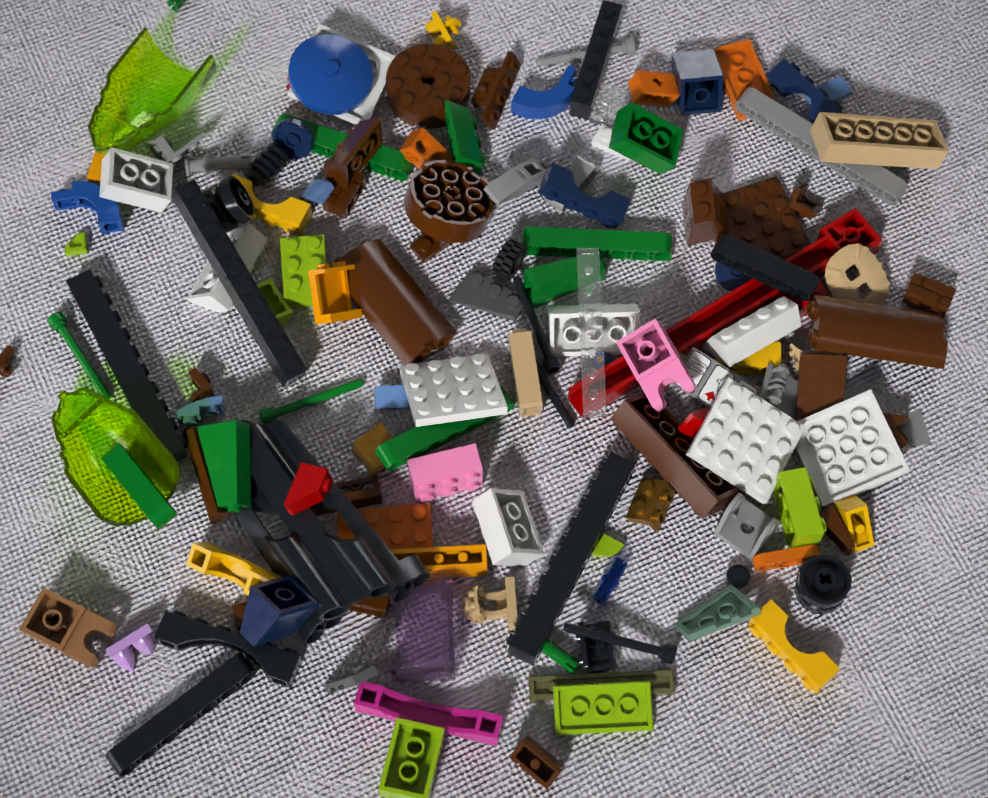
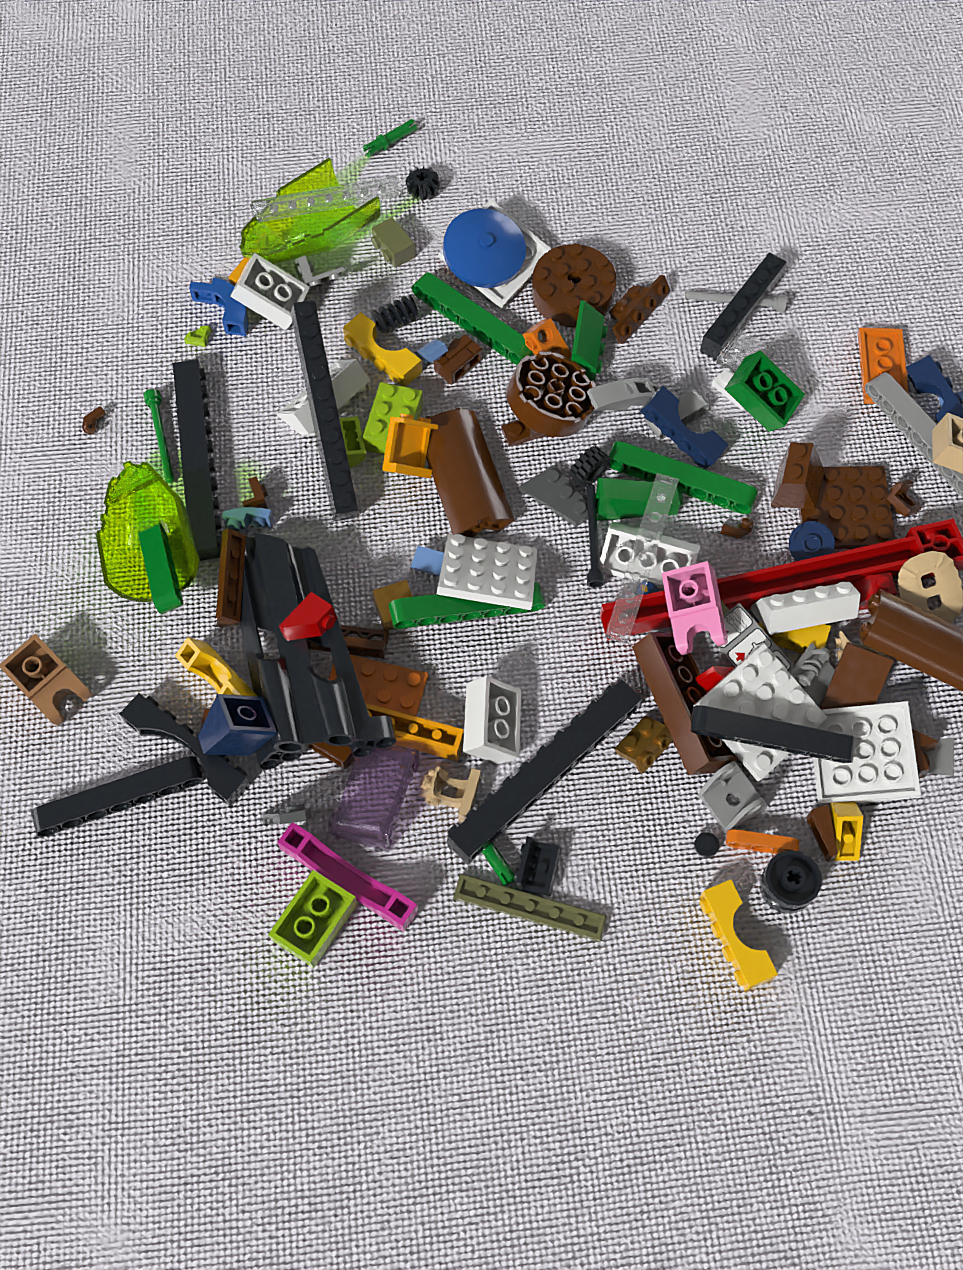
camera: 20 degrees right, 0 degrees up
(122, 652) = (87, 716): lavender tile -> none
(156, 69) = (325, 198): none -> clear tile
(207, 164) = (342, 299): light grey pin -> none
(228, 462) = (248, 572): green slope -> none
(230, 203) = (344, 336): black wheel -> none
(235, 93) = (393, 242): none -> olive brick
(241, 23) = (422, 183): none -> black gear
(269, 415) = (311, 541): green piece -> none
(294, 138) = (429, 296): dark blue tile -> none
(354, 153) = (478, 324): reddish brown slope -> none
(445, 473) = (451, 648): bright pink brick -> none
(446, 28) = (609, 239): yellow hips -> none
(525, 373) = (564, 578): tan slope -> none
(537, 761) = (435, 962): reddish brown brick -> none
(548, 103) = (680, 333): blue arch -> none
(555, 399) = (574, 551): black piece -> none
(602, 707) = (522, 930): lime tile -> none
(607, 547) = (585, 772): lime tile -> none
(610, 581) = (575, 806): clear blue pin -> none
(653, 88) = (789, 348): orange brick -> none
(664, 652) = (603, 895): black piece -> none
(666, 278) = (738, 531): none -> reddish brown arm
(698, 81) = (835, 354): dark blue slope -> none
(717, 613) = (671, 875): sand green wing -> none
(764, 457) = (772, 734): none -> black beam
(765, 267) = (839, 548): black beam -> none
(798, 508) = (791, 796): lime brick -> none

